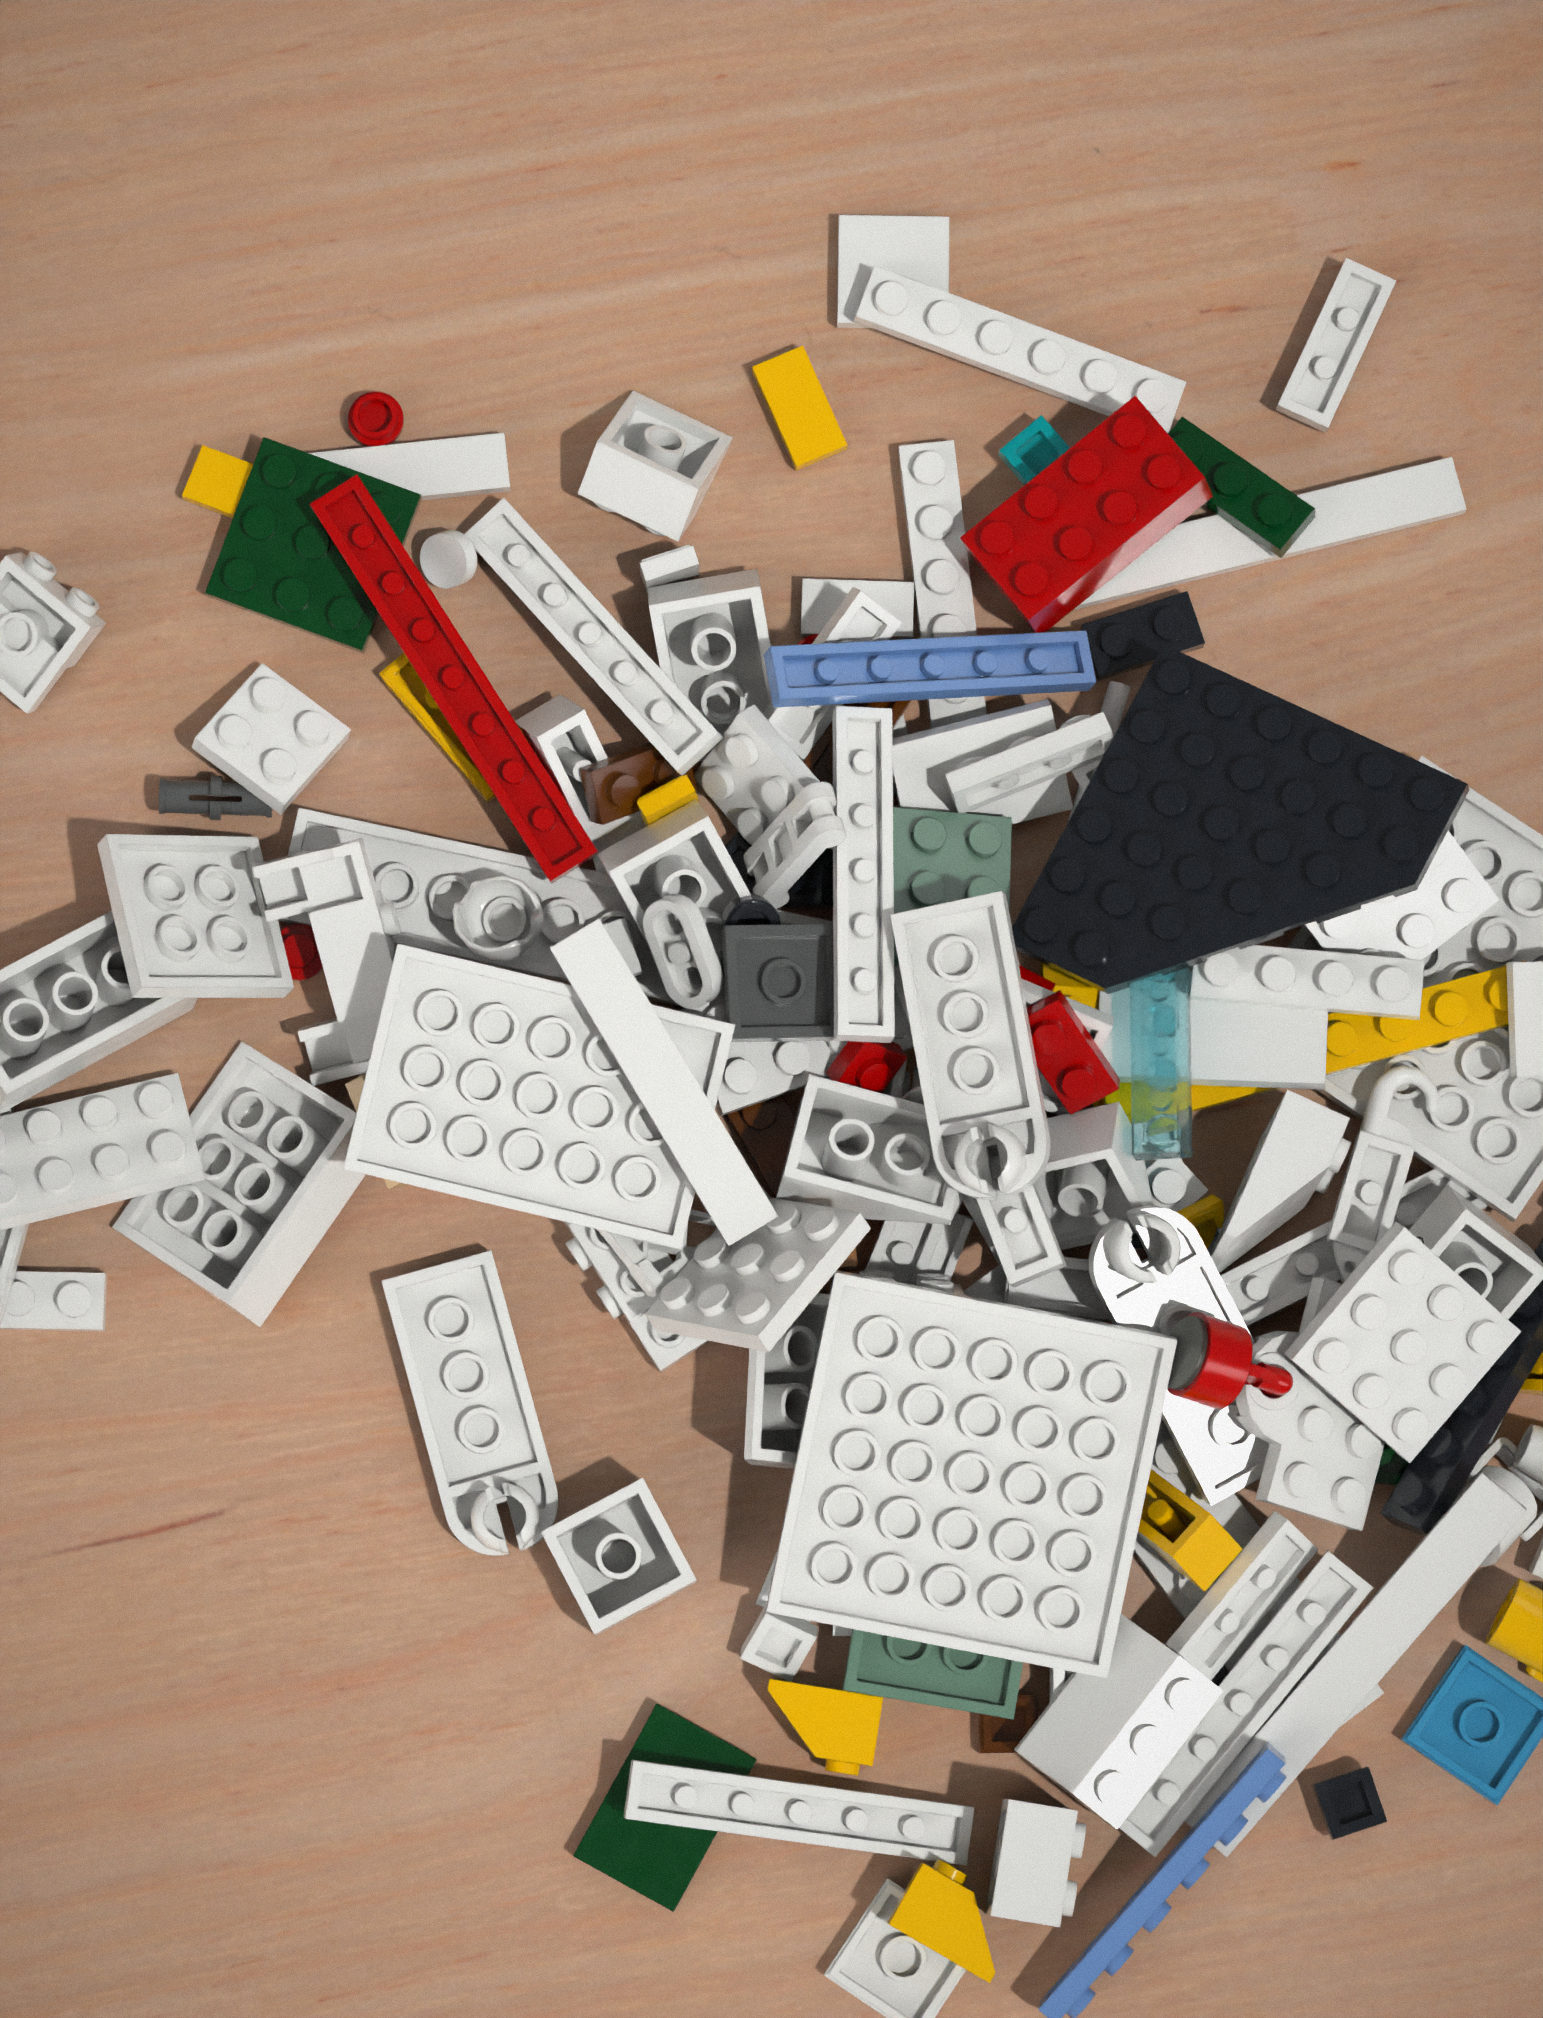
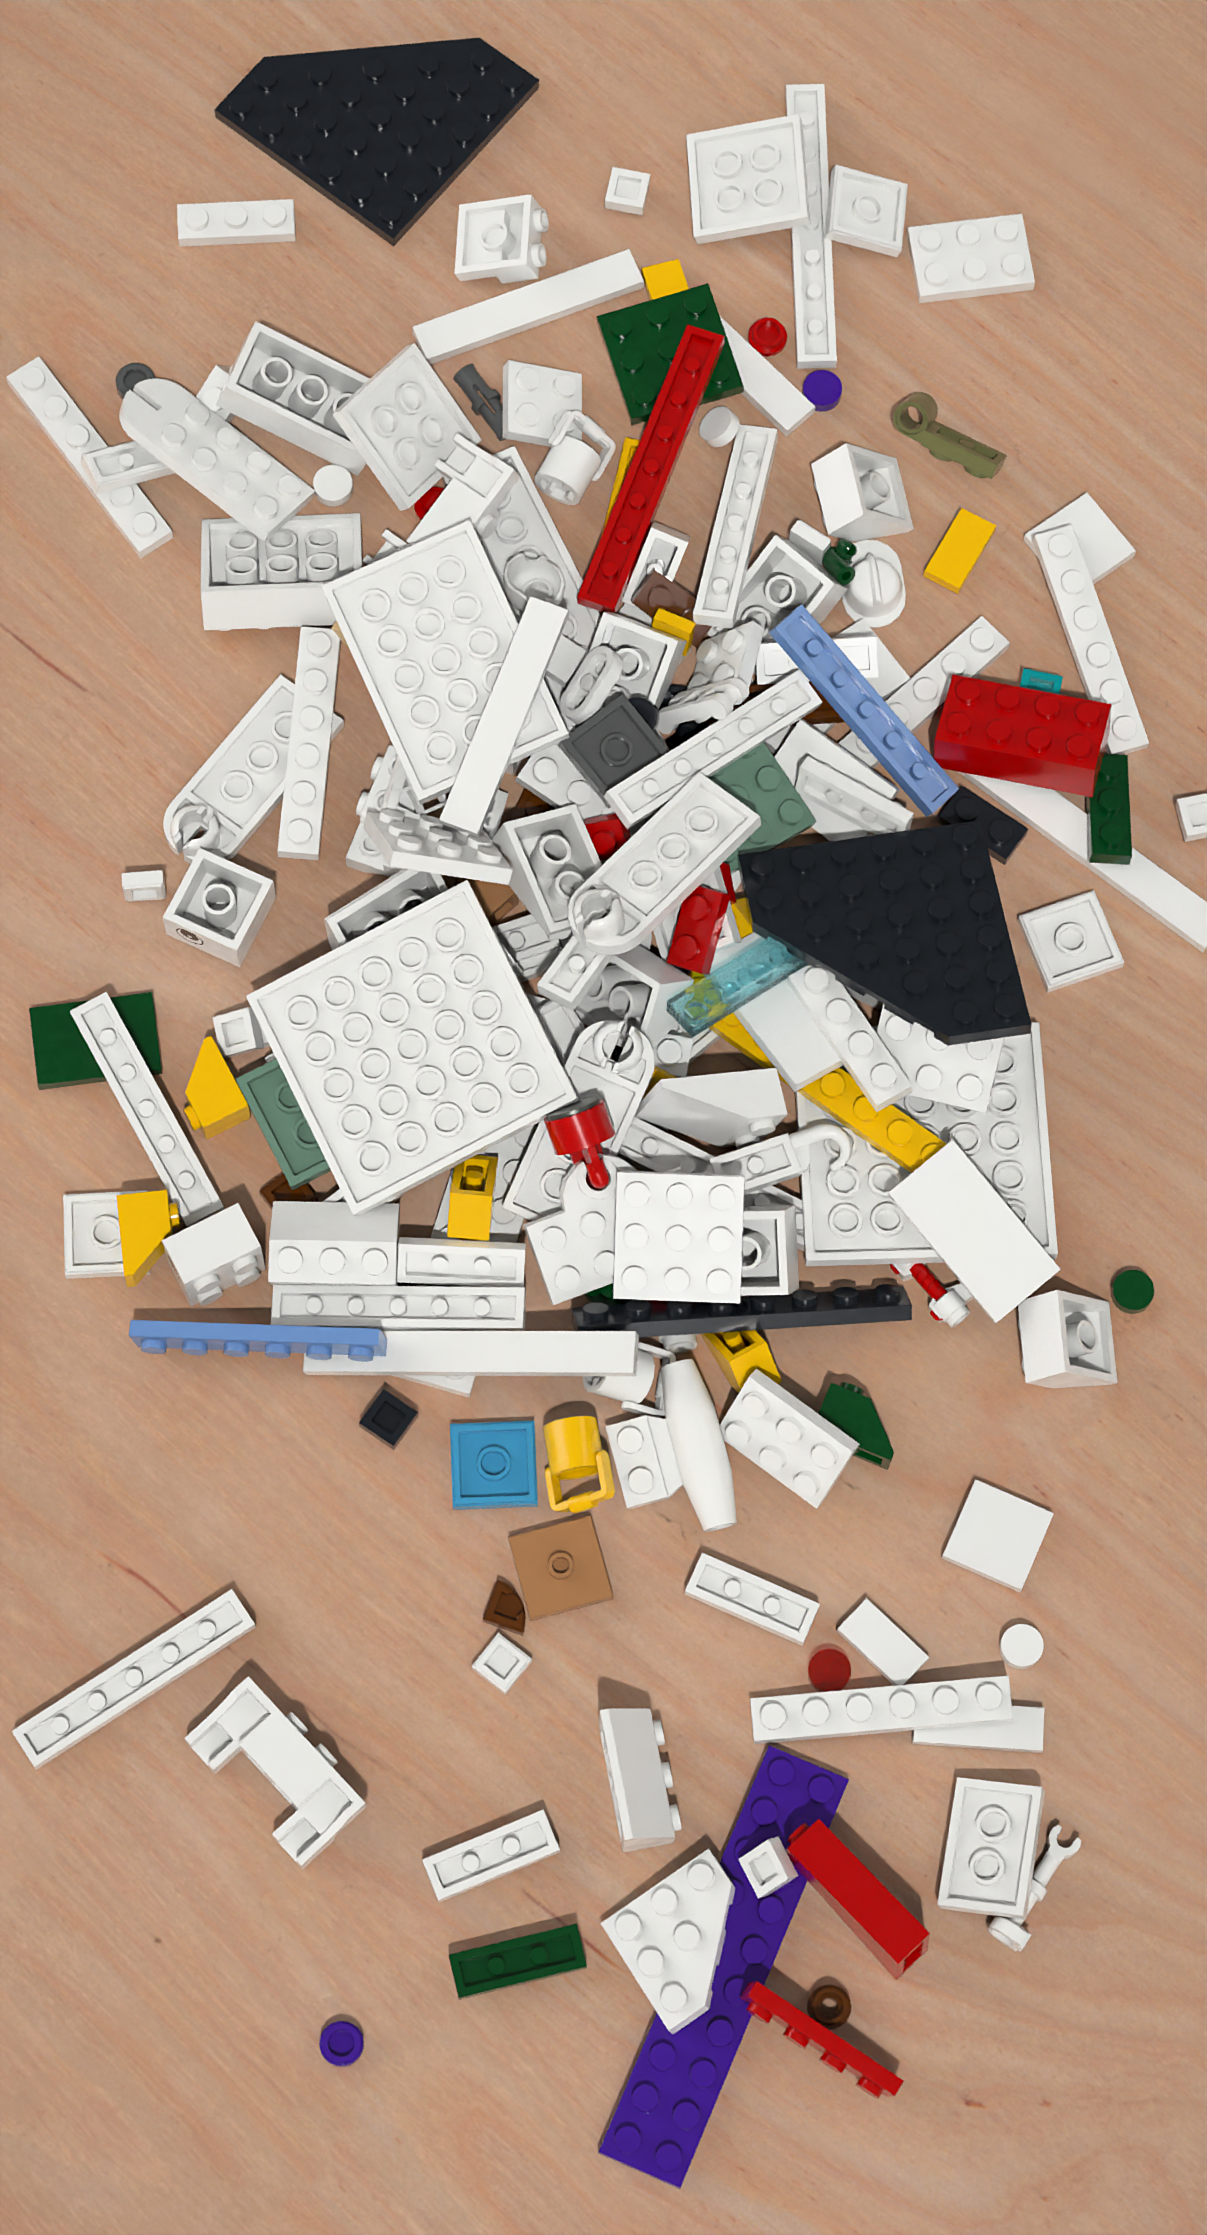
camera: 55 degrees right, 10 degrees down
(71, 437) = (627, 191): none -> white plate
(129, 660) = (528, 307): none -> white tile
(168, 292) = (748, 179): none -> white plate
(184, 1046) = (333, 485): none -> white tile
(275, 264) = (810, 249): none -> white plate
(307, 189) = (866, 211): none -> white tile
(372, 764) = (571, 462): none -> white piece
(451, 117) = (970, 258): none -> white plate
(488, 408) = (822, 390): none -> dark purple tile
(494, 1310) = (309, 744): none -> white plate
(523, 1621) = (143, 885): none -> white tile
(659, 322) = (945, 442): none -> olive plate
(714, 553) = (838, 561): none -> dark green arm
(761, 530) = (878, 585): none -> white piece
(1347, 646) = (1070, 941): none -> white tile

